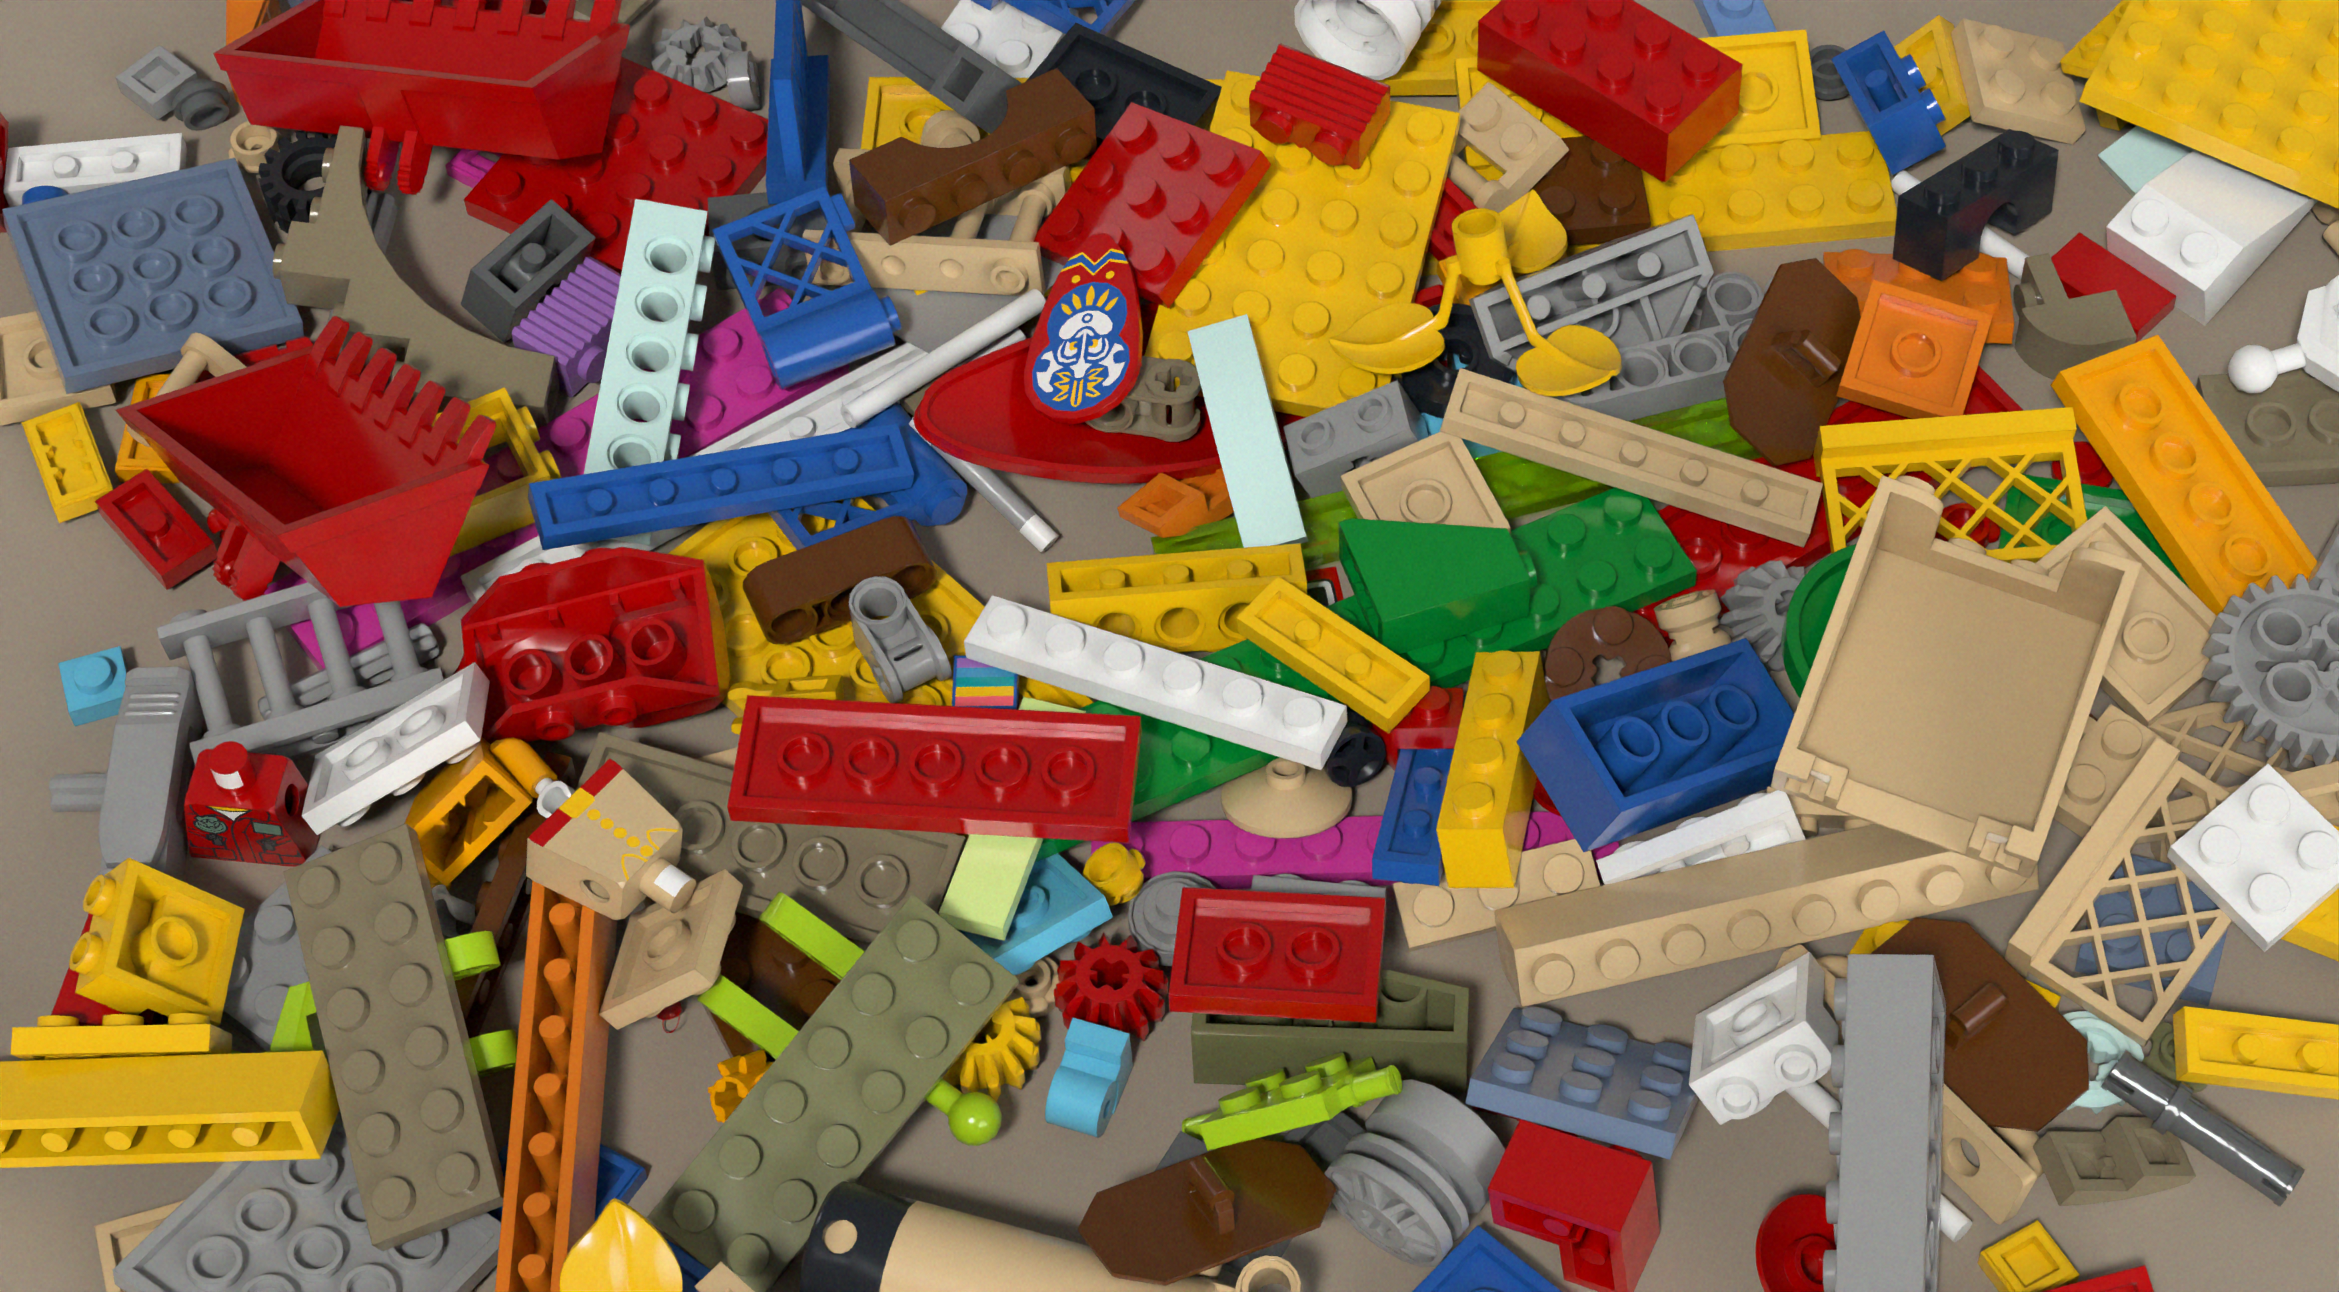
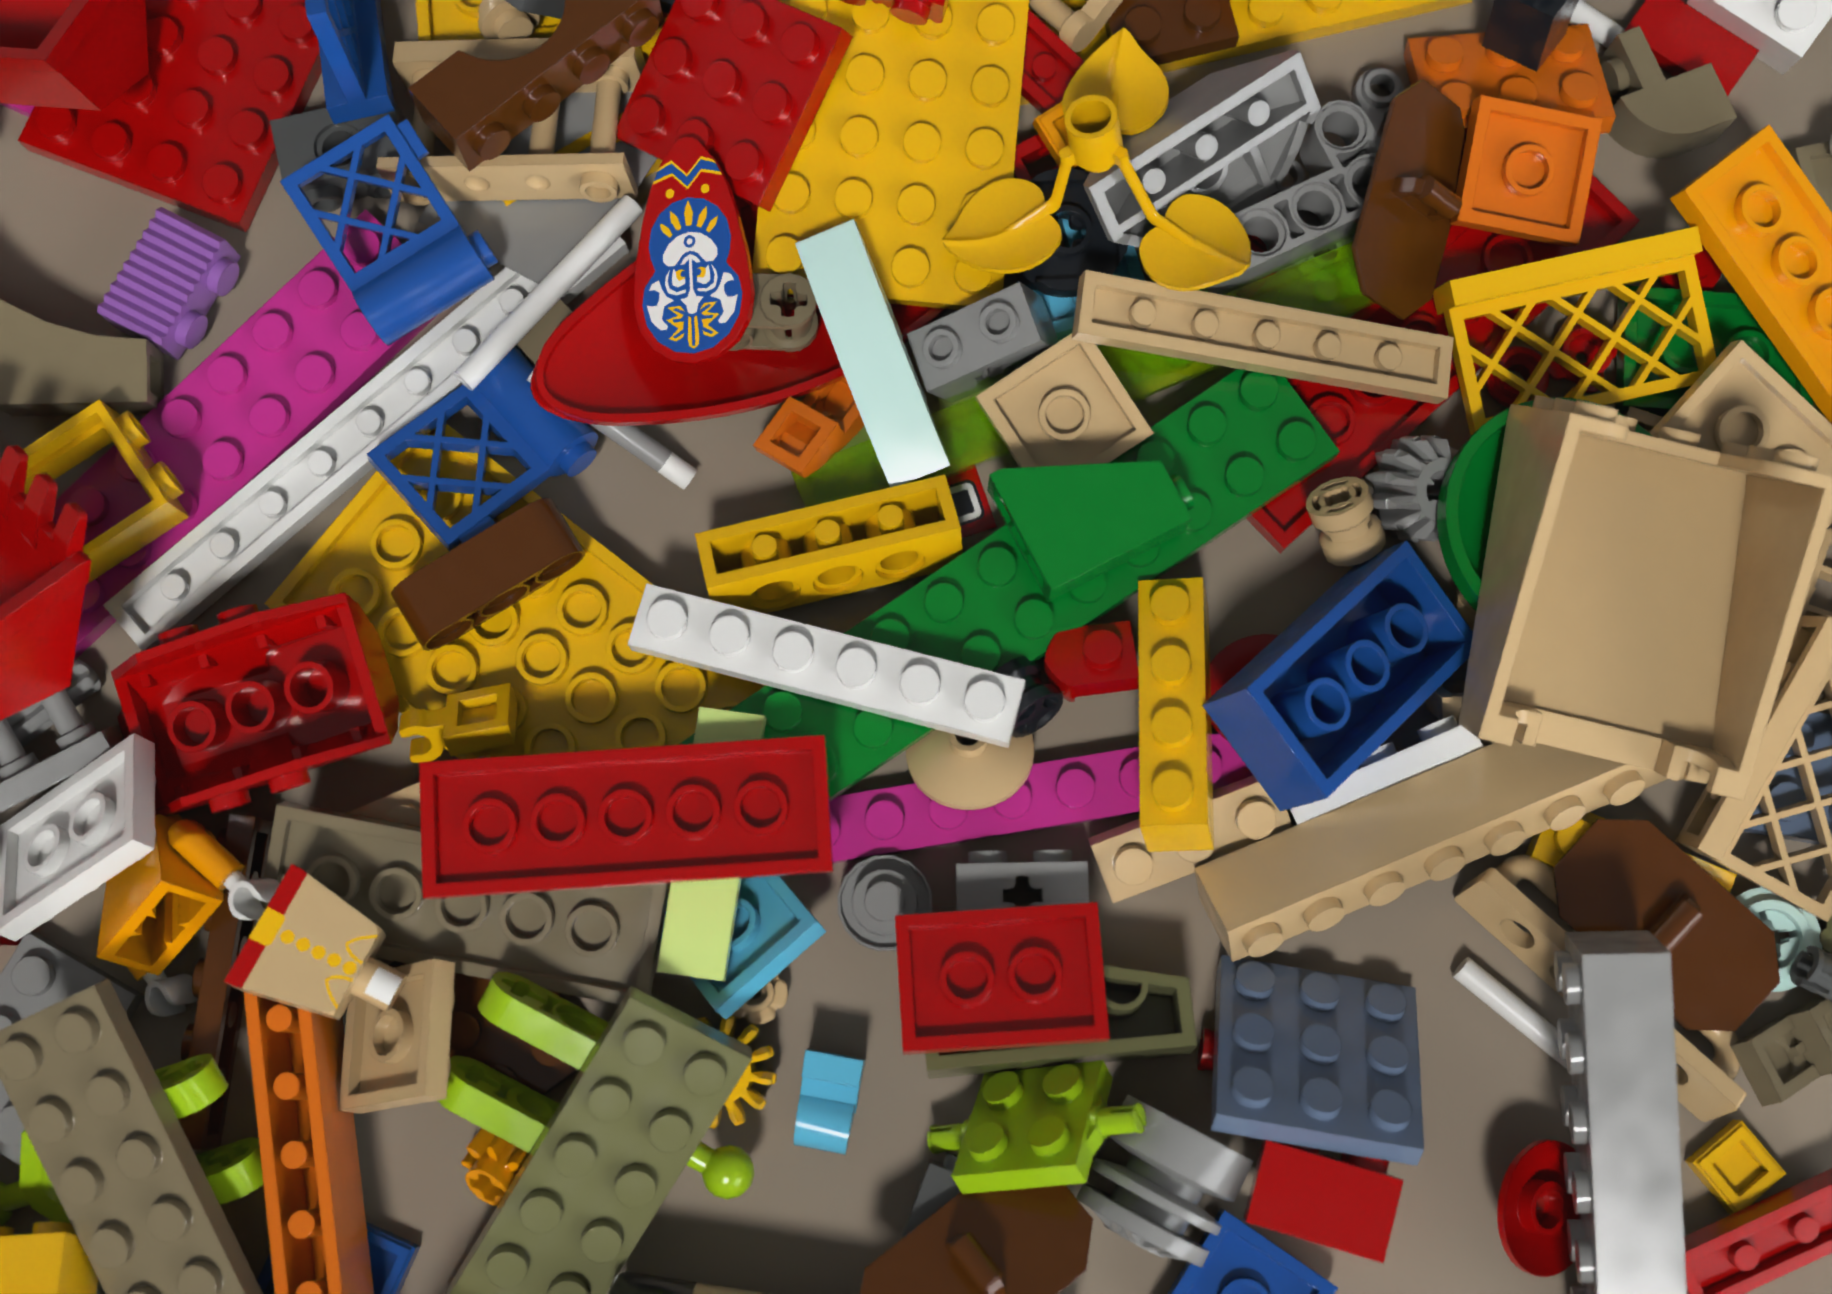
camera: 10 degrees left, 25 degrees up
(525, 269) = (99, 229): dark grey brick -> none
(658, 241) = (222, 193): light aqua brick -> none
(719, 486) = (342, 498): blue plate -> none
(897, 648) = (563, 650): light grey piece -> none
(983, 685) = (654, 682): tile -> none
(1112, 986) = (834, 1018): red gear -> none
(1115, 872) = (818, 892): yellow plate -> none
(1333, 654) = (1001, 615): yellow plate -> none
(1408, 837) = (1109, 770): blue plate -> none
(1606, 633) = (1263, 537): reddish brown plate -> none
(1763, 1041) = (1476, 989): white plate -> none

